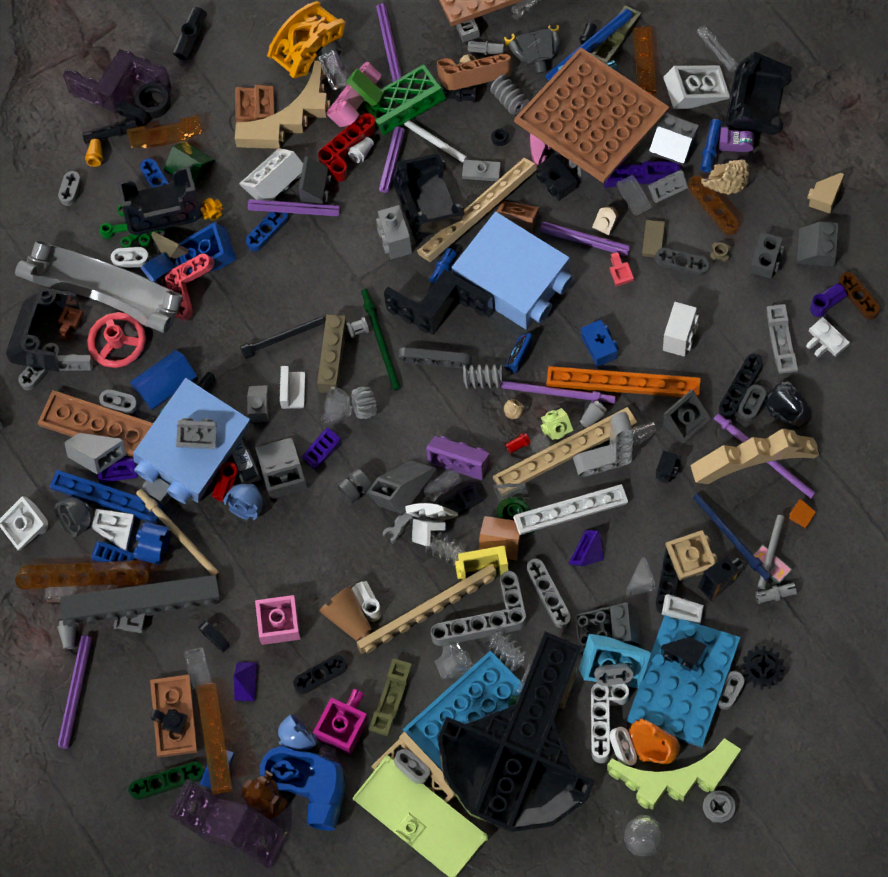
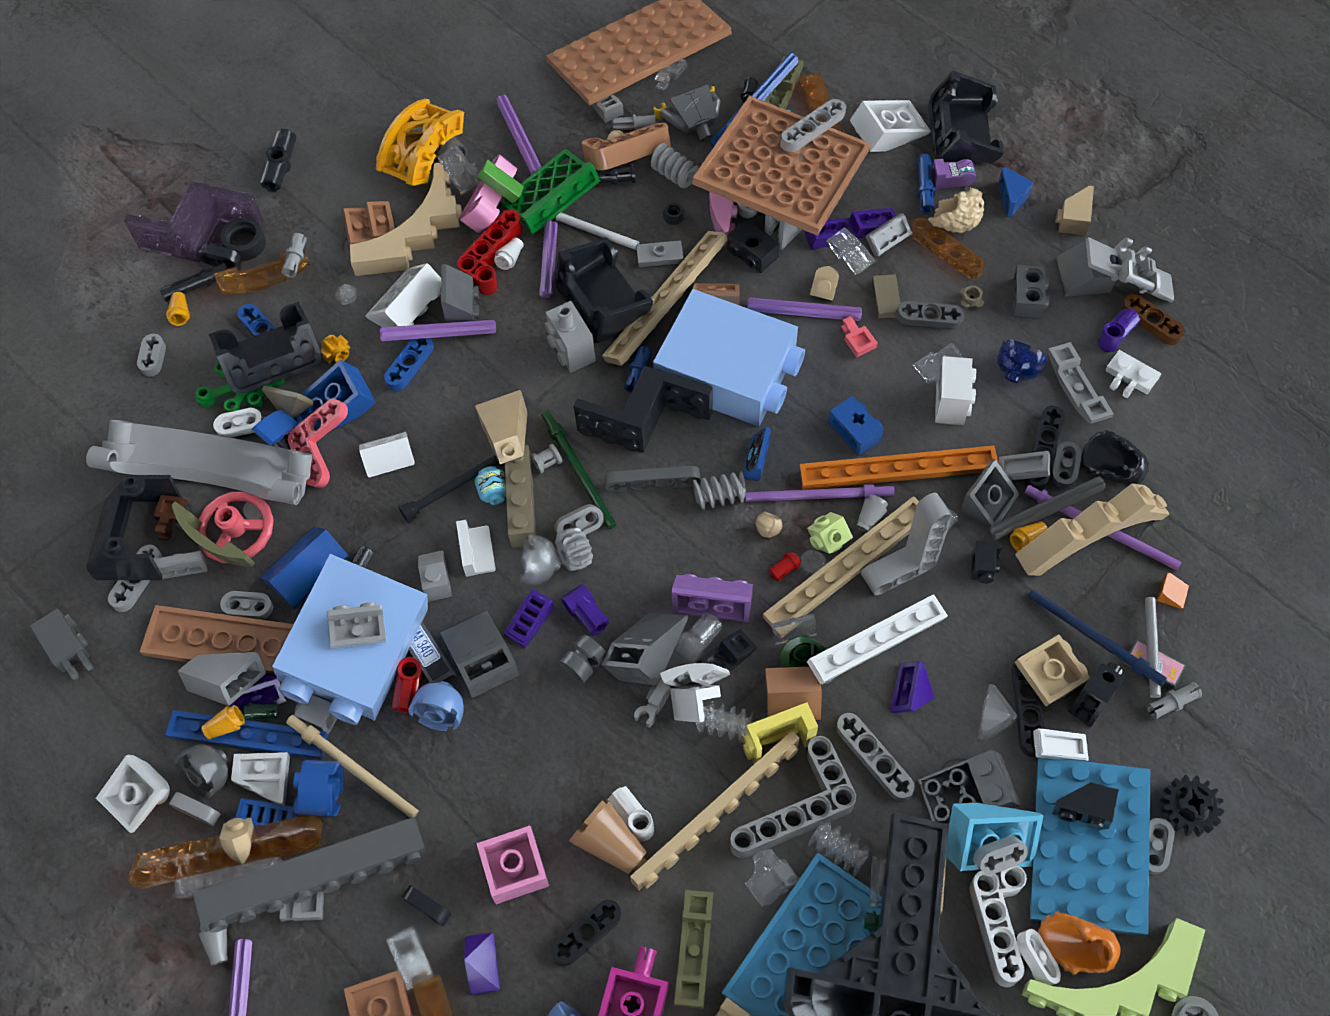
camera: 15 degrees left, 5 degrees down
(64, 542) = (194, 809): none -> light grey beam
(92, 485) = (224, 722): none -> light orange cone
(92, 567) = (236, 838): none -> tan plate
(111, 360) = (228, 553): none -> olive slope
(118, 481) = (260, 710): none -> pin
(187, 155) = (292, 291): dark green slope -> none
(191, 124) = (294, 255): none -> light grey pin
(227, 163) = (346, 294): none -> clear plate
(237, 302) = (386, 454): none -> white panel
(312, 341) = (491, 485): none -> medium azure head
(331, 296) = (505, 425): none -> tan slope
(362, 447) = (581, 604): none -> dark purple piece
(371, 380) = (577, 519): none -> light grey plate
(623, 82) = (809, 122): none -> light grey beam
(674, 139) = (881, 182): slope -> none
(688, 298) = (929, 366): none -> clear slope
(703, 450) = (1026, 534): none -> light orange cone
(704, 33) = (895, 78): clear pin -> none
(718, 398) = (1026, 465): none -> light grey tile
(725, 434) = (1047, 508): none -> dark grey axle
(739, 315) = (1019, 361): none -> clear blue cylinder
(781, 166) = (1014, 190): none -> blue slope
(842, 246) = (1130, 267): none -> light grey piece

